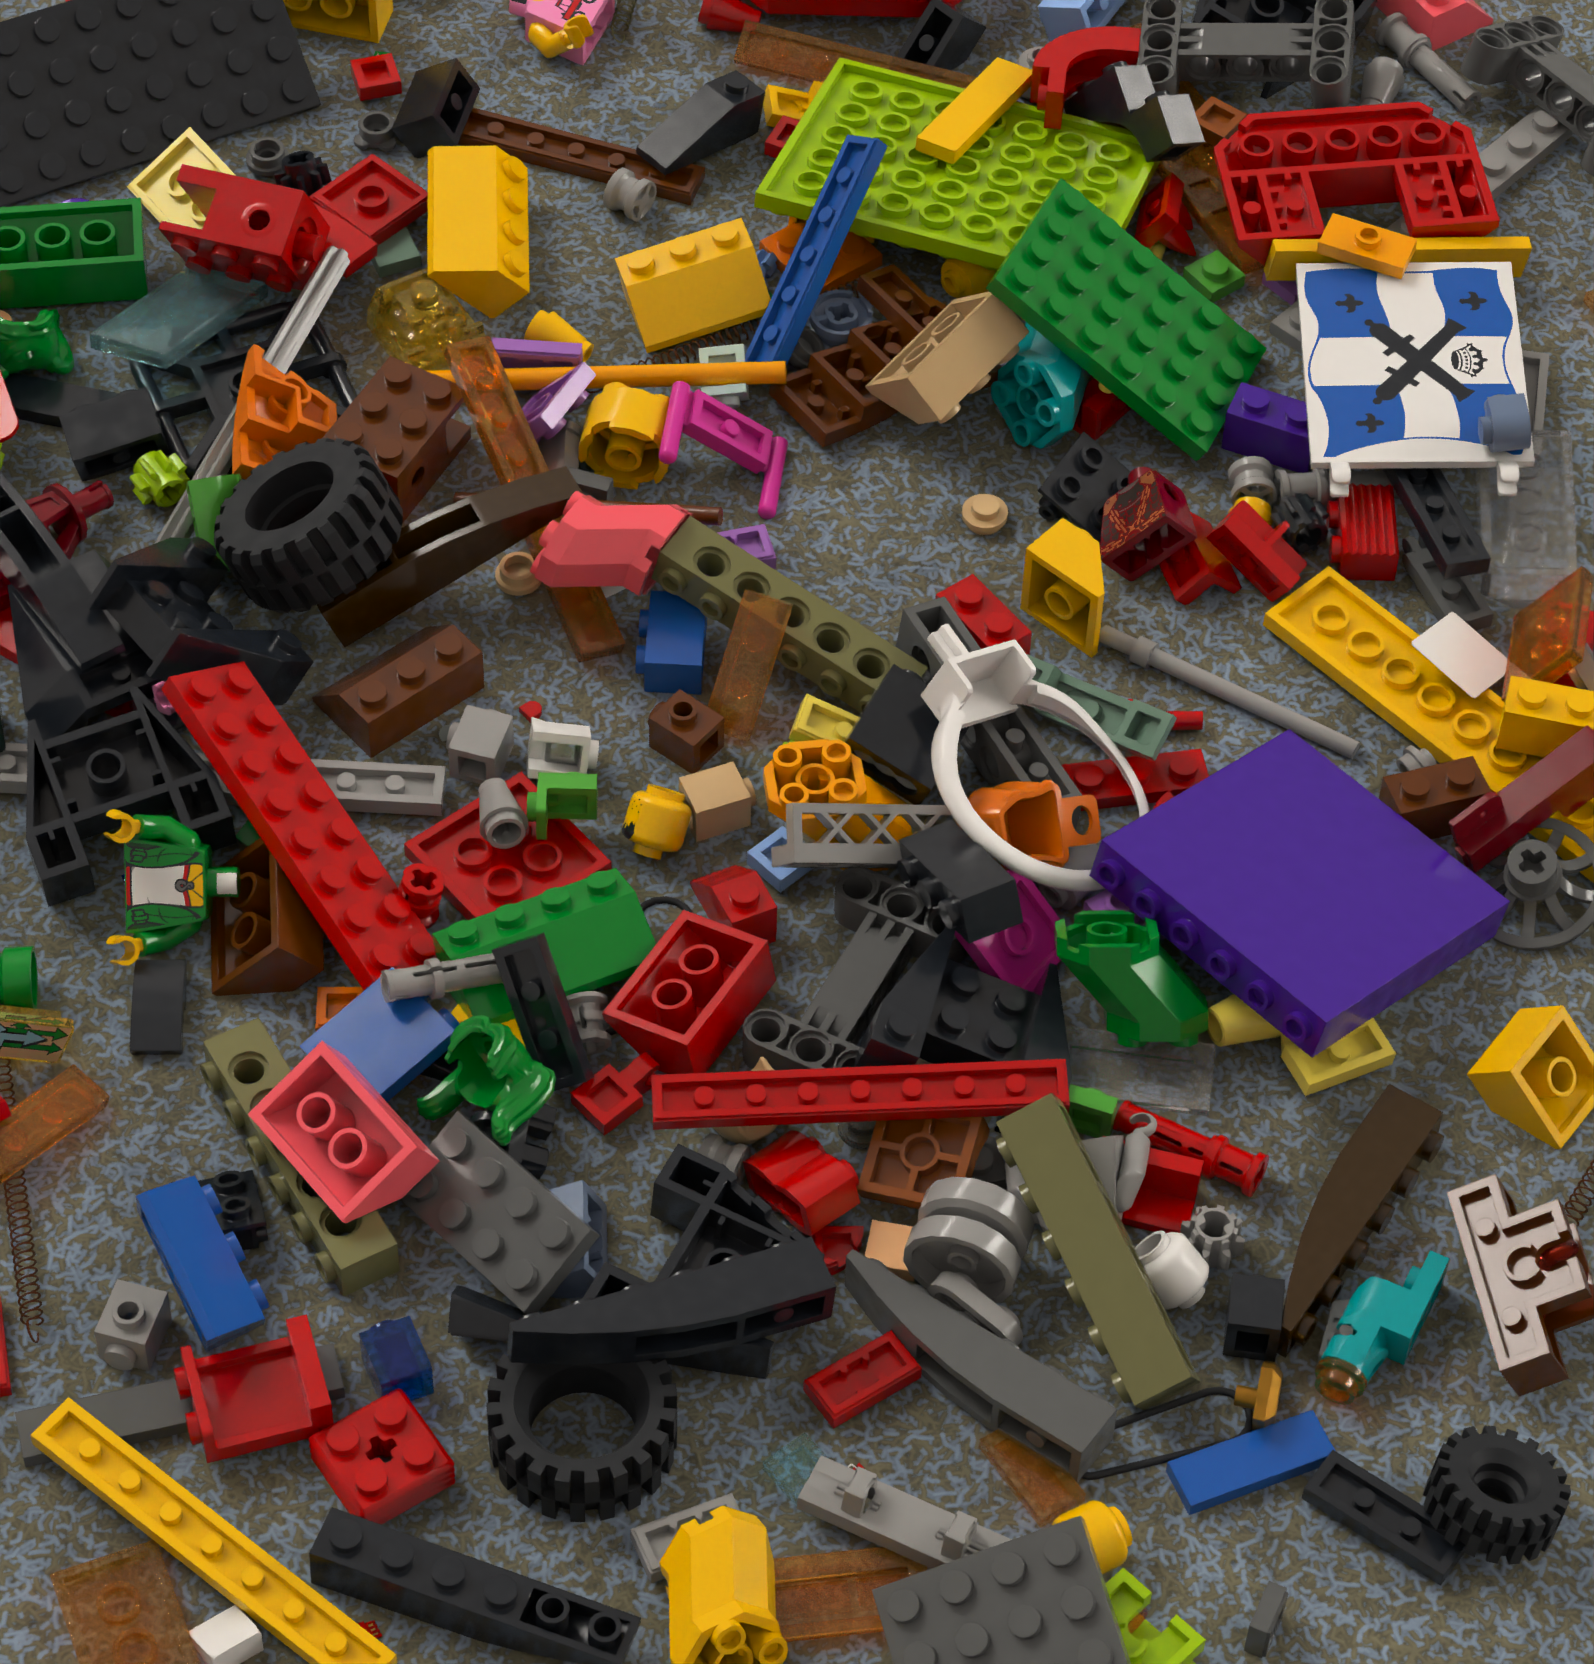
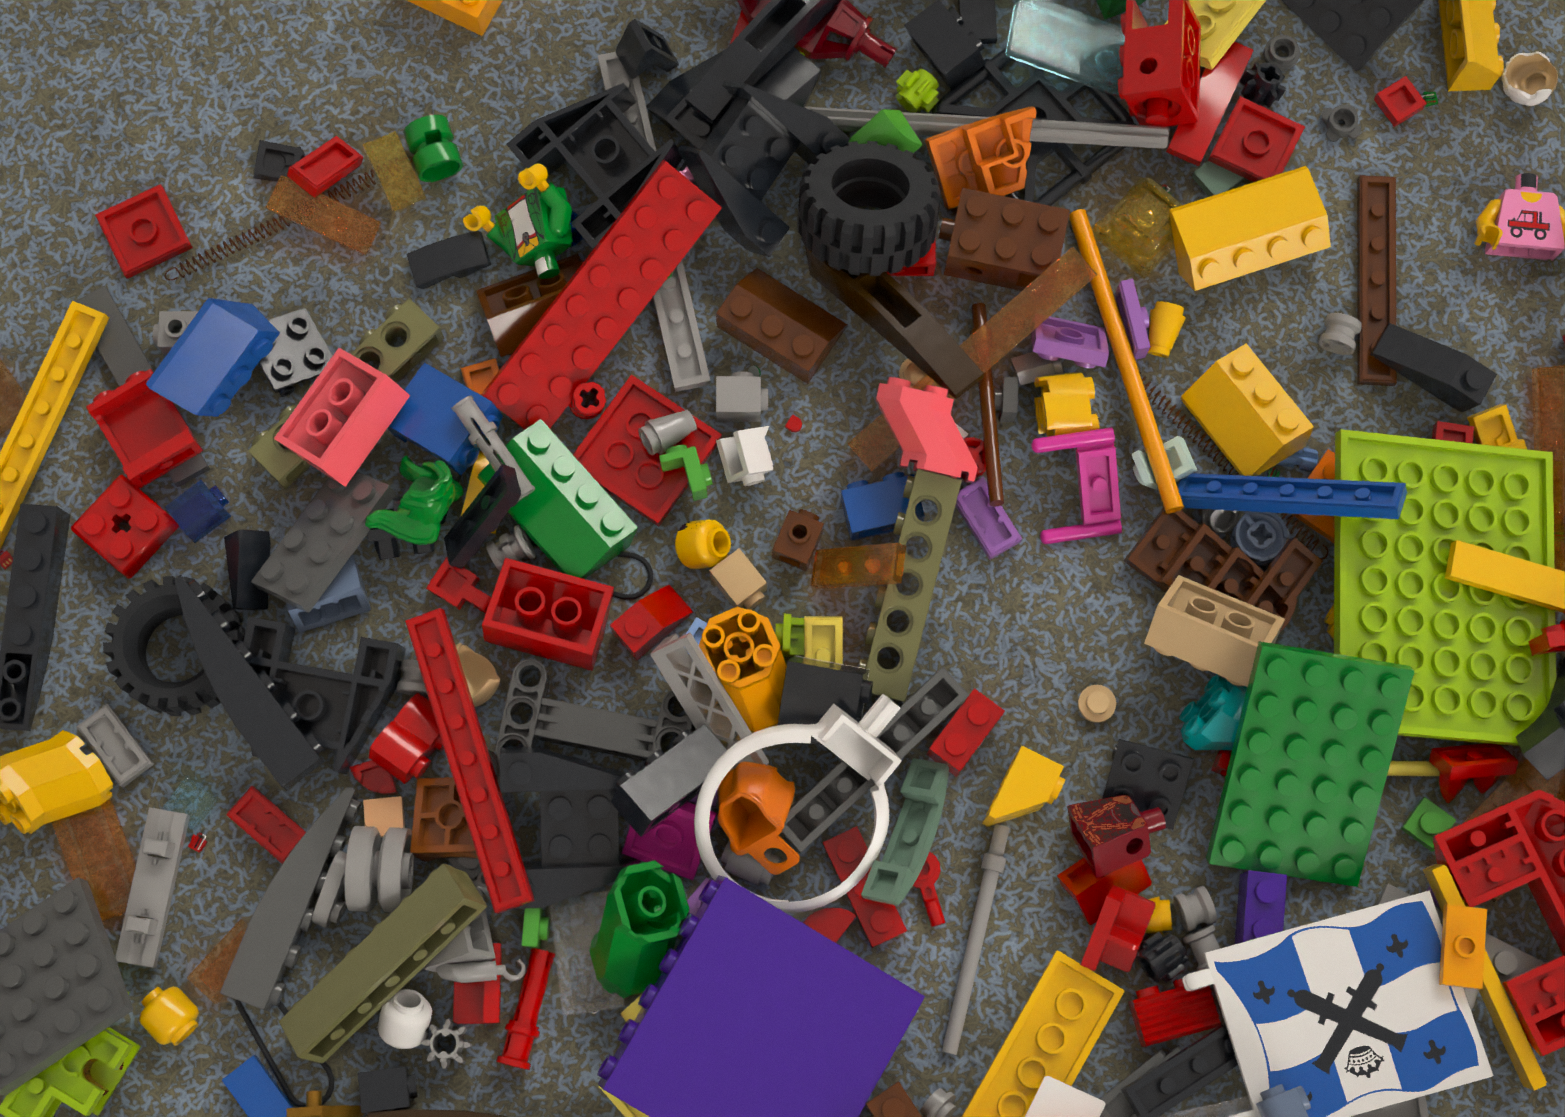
camera: 75 degrees right, 25 degrees up
(436, 107) = (1373, 157): black brick -> none

